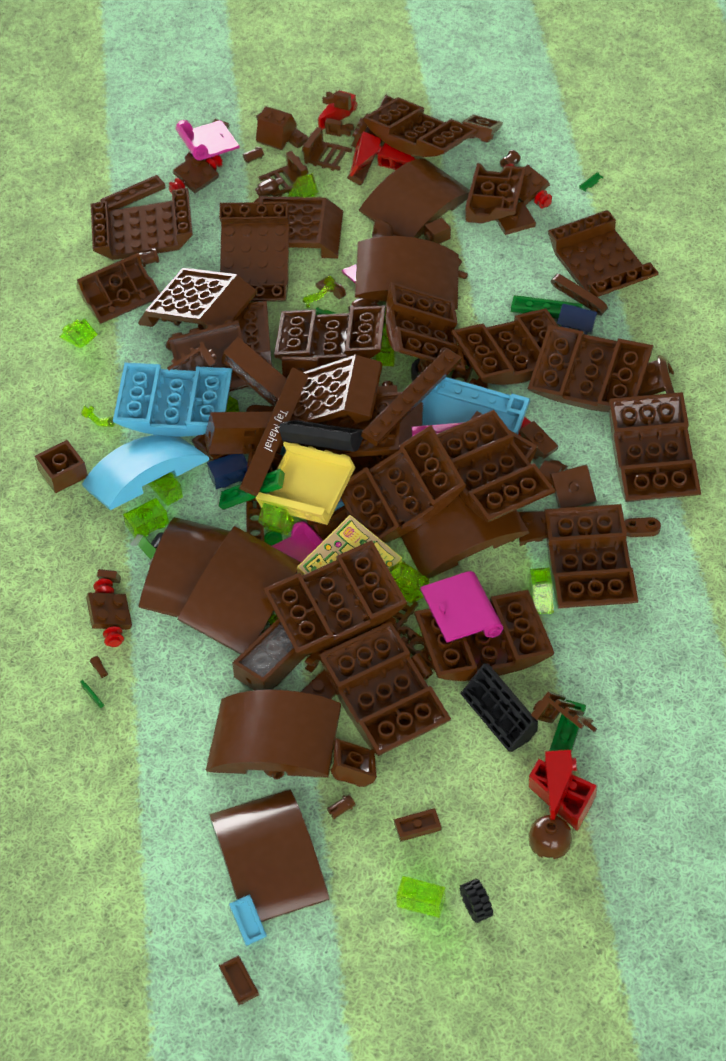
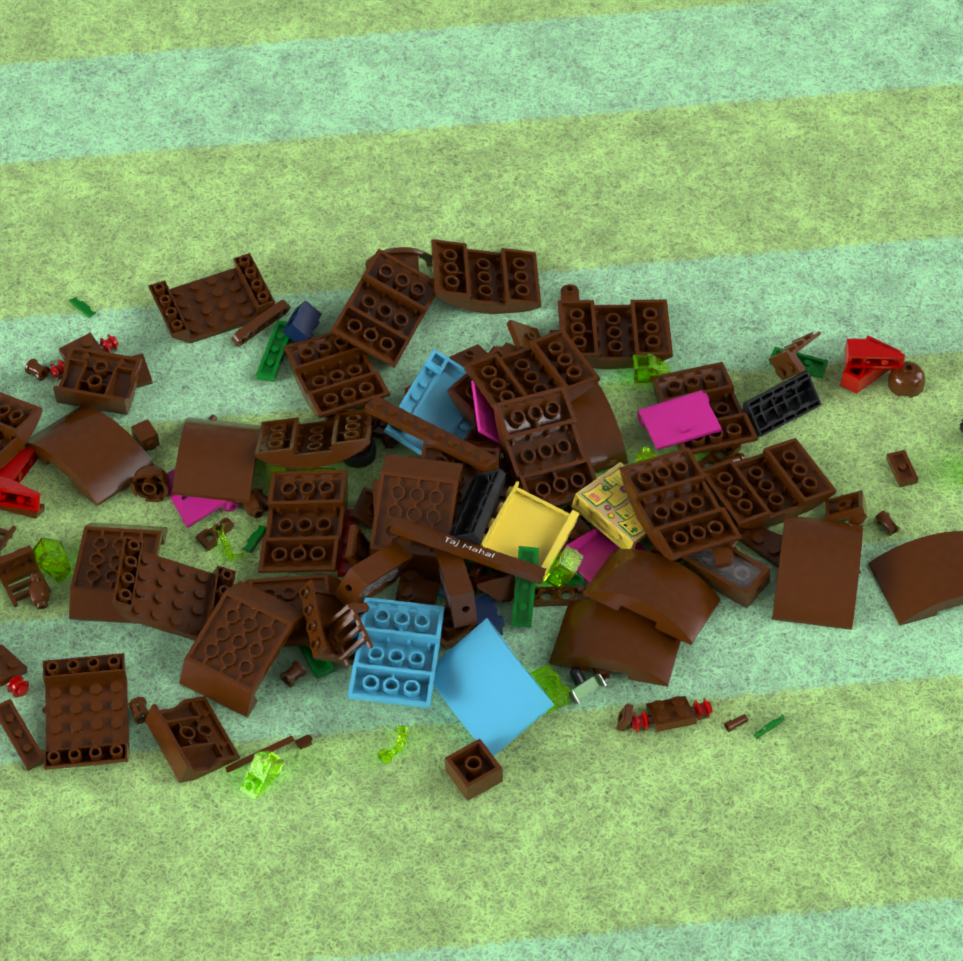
camera: 90 degrees left, 0 degrees up
(109, 358) = (302, 742): none -> reddish brown piece
(277, 641) = (723, 557): none -> reddish brown tile

